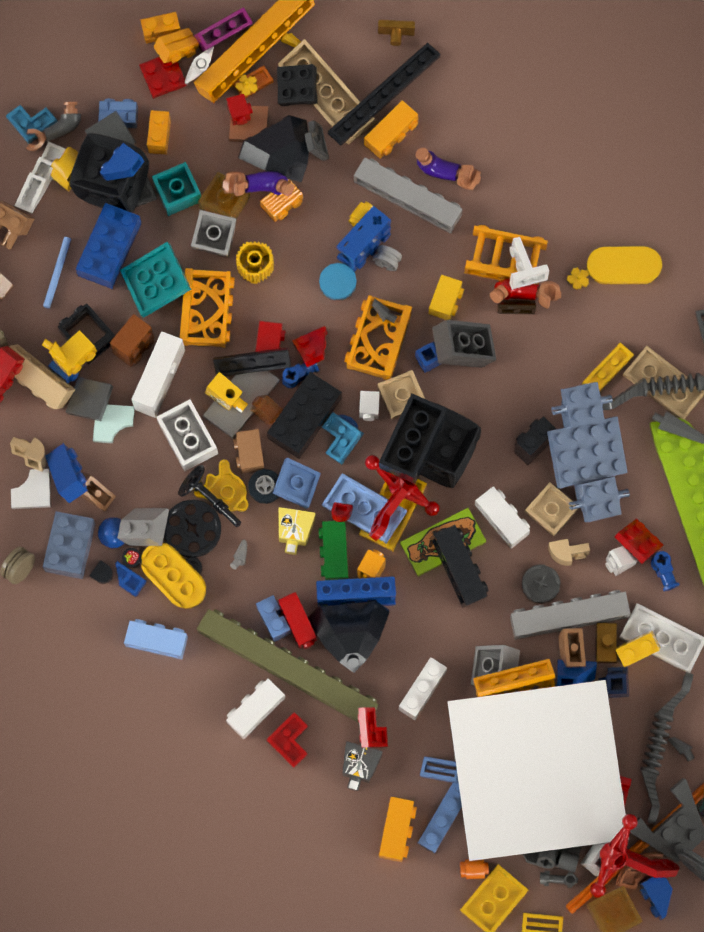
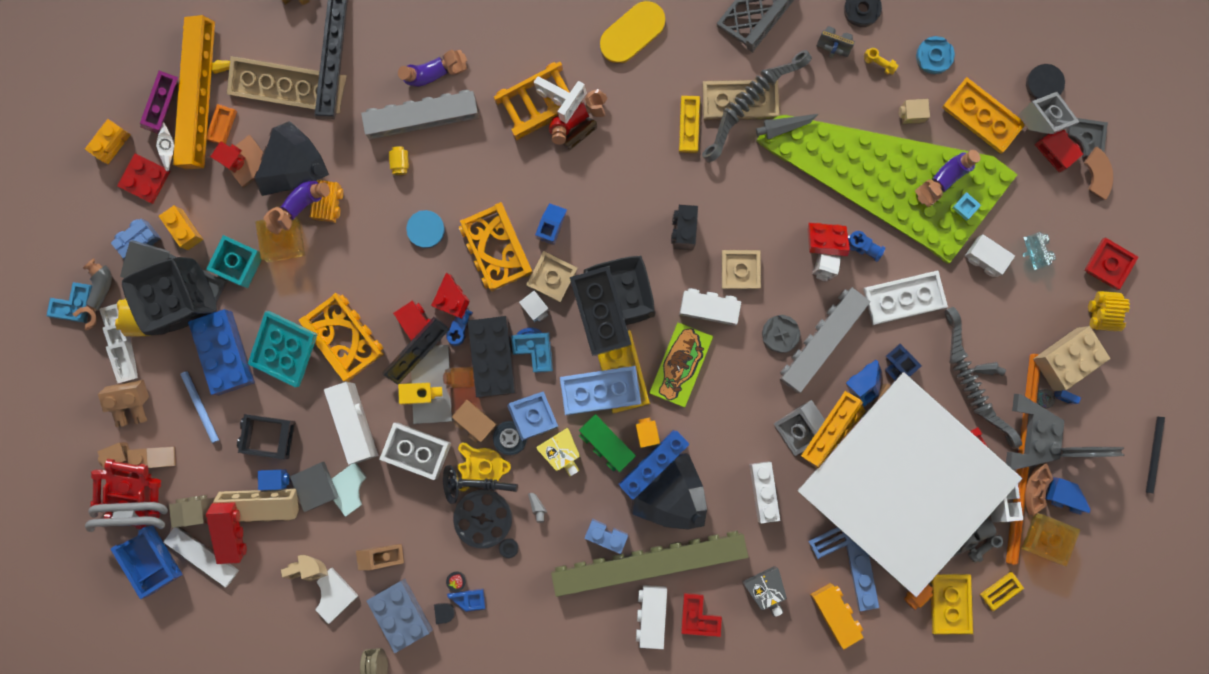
camera: 40 degrees left, 10 degrees up
(55, 350) = (252, 478): yellow bar -> none
(66, 472) = (348, 564): blue brick -> none
(78, 351) = (270, 464): yellow brick -> none
(109, 531) = (424, 574): blue piece -> none
(122, 164) = (171, 284): blue slope -> none
(132, 340) = (307, 413): dark orange brick -> none
(144, 527) = (444, 551): light grey slope -> none
(156, 639) = (530, 629): light blue brick -> none
(173, 575) = (500, 568): yellow tile -> none
(176, 45) = (133, 146): light orange brick -> none
(214, 233) = (296, 273): light grey slope -> none
(247, 85) = (218, 131): yellow plant -> none
(255, 271) = (355, 276): yellow brick -> none
(297, 85) = (257, 98): black brick -> none
(297, 620) = (627, 523): red slope -> none
(316, 141) = (312, 131): dark grey tile -> none
(341, 512) = (587, 409): red tile -> none
(364, 242) = (419, 184): blue piece -> none
(370, 734) = (758, 561): red plate -> none
(383, 311) = (482, 224): dark grey bar -> none
(387, 257) = (448, 178): light grey wheel -> none
(391, 130) = (362, 73): light orange brick -> none
(400, 490) = (621, 366): red piece -> none
(445, 298) = (520, 172): yellow brick -> none
(459, 566) = (714, 376): black brick -> none
(464, 343) = (567, 197): dark grey brick -> none
(563, 553) = (779, 296): tan brick -> none
(572, 647) = (851, 366): medium nougat slope -> none
(578, 278) = (606, 71): yellow plant -> none
(588, 452) = (734, 203): sand blue piece -> none
(606, 642) = (867, 337): pearl gold tile -> none
(616, 855) = (1026, 494): red piece -> none
(638, 648) = (898, 323): yellow brick -> none

